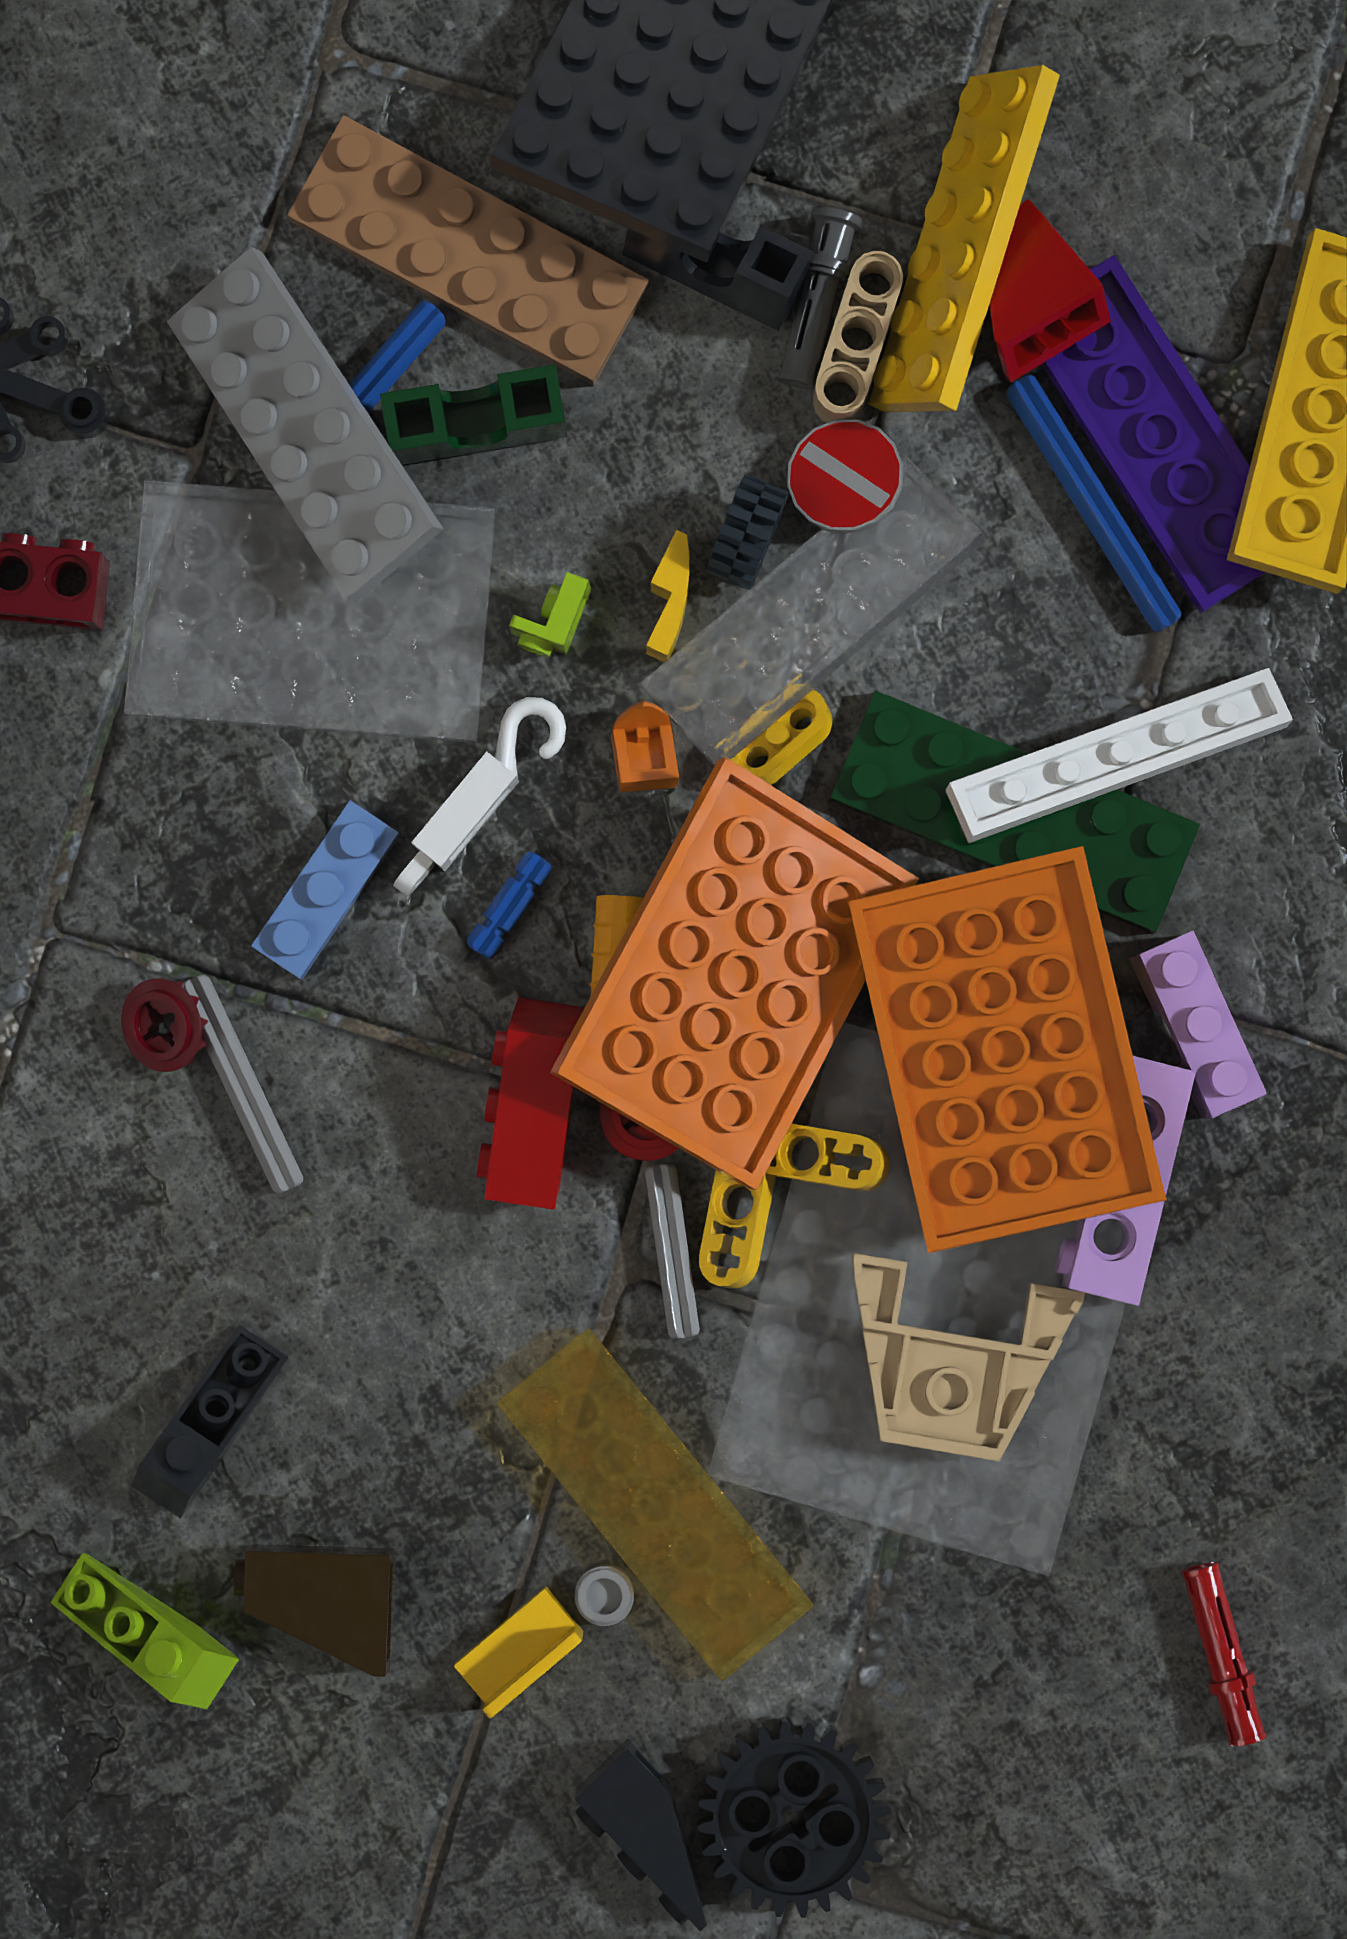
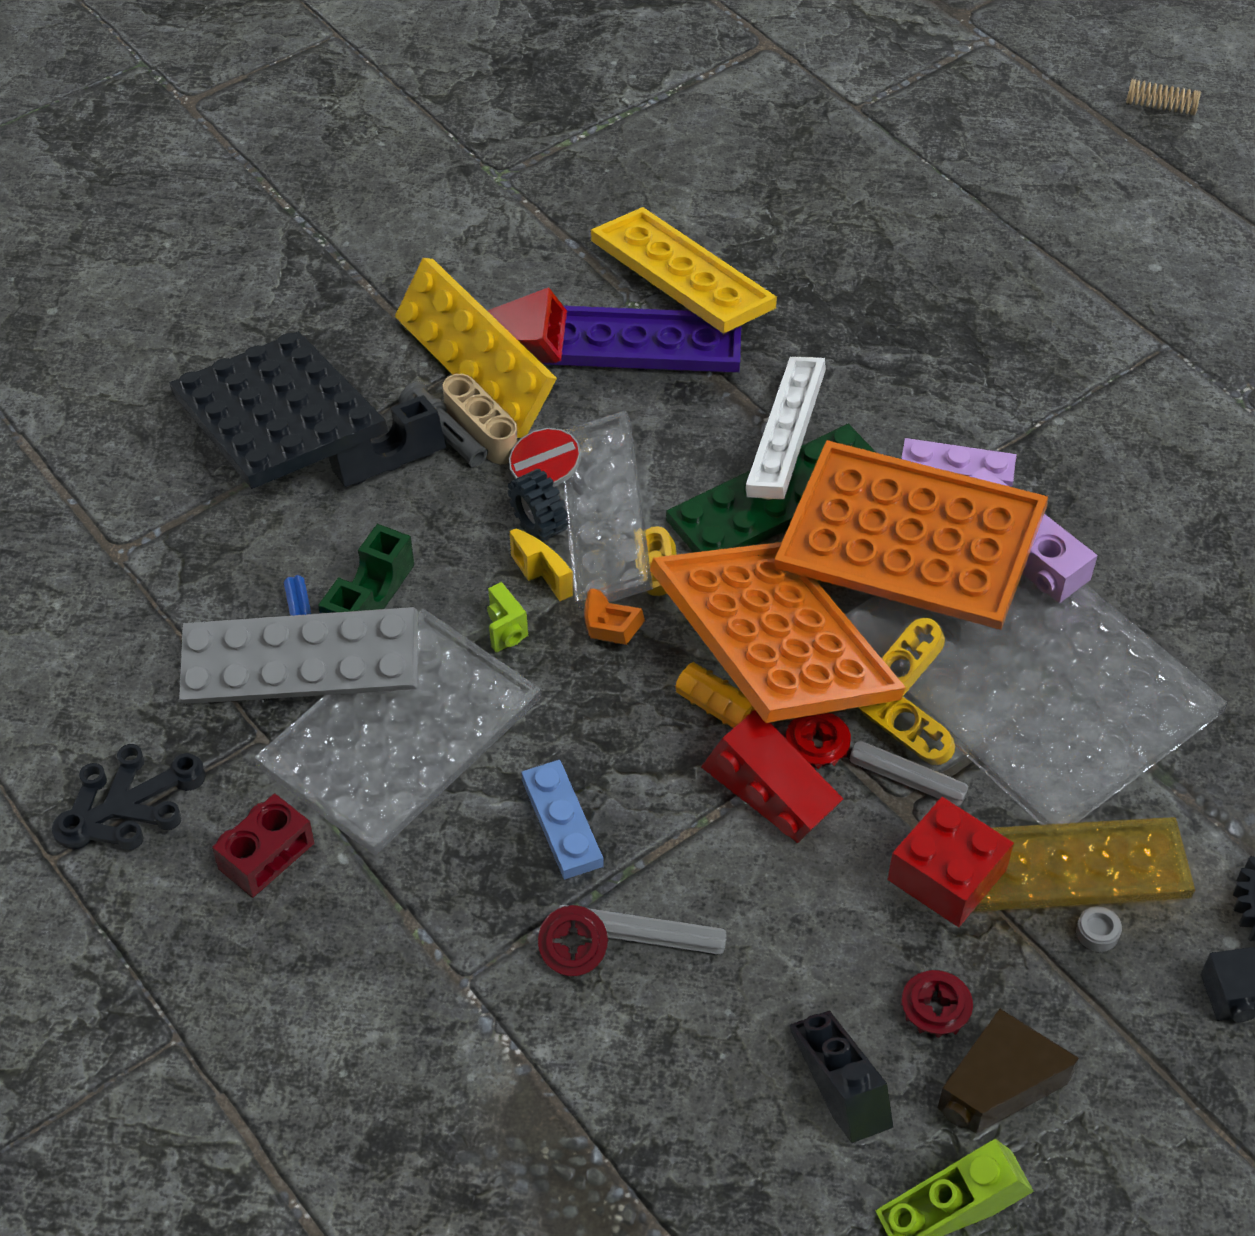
camera: 50 degrees left, 35 degrees down
(369, 1500) = (949, 990): none -> dark red gear
(468, 250) = (270, 551): medium nougat plate -> none
(478, 794) = (572, 709): white piece -> none
(509, 905) = (645, 735): blue axle -> none
(519, 1651) = (1109, 990): yellow panel -> none
(541, 1391) = (950, 861): none -> red brick
(948, 1386) = (1081, 676): tan wing -> none
(1093, 503) = (647, 380): blue axle -> none

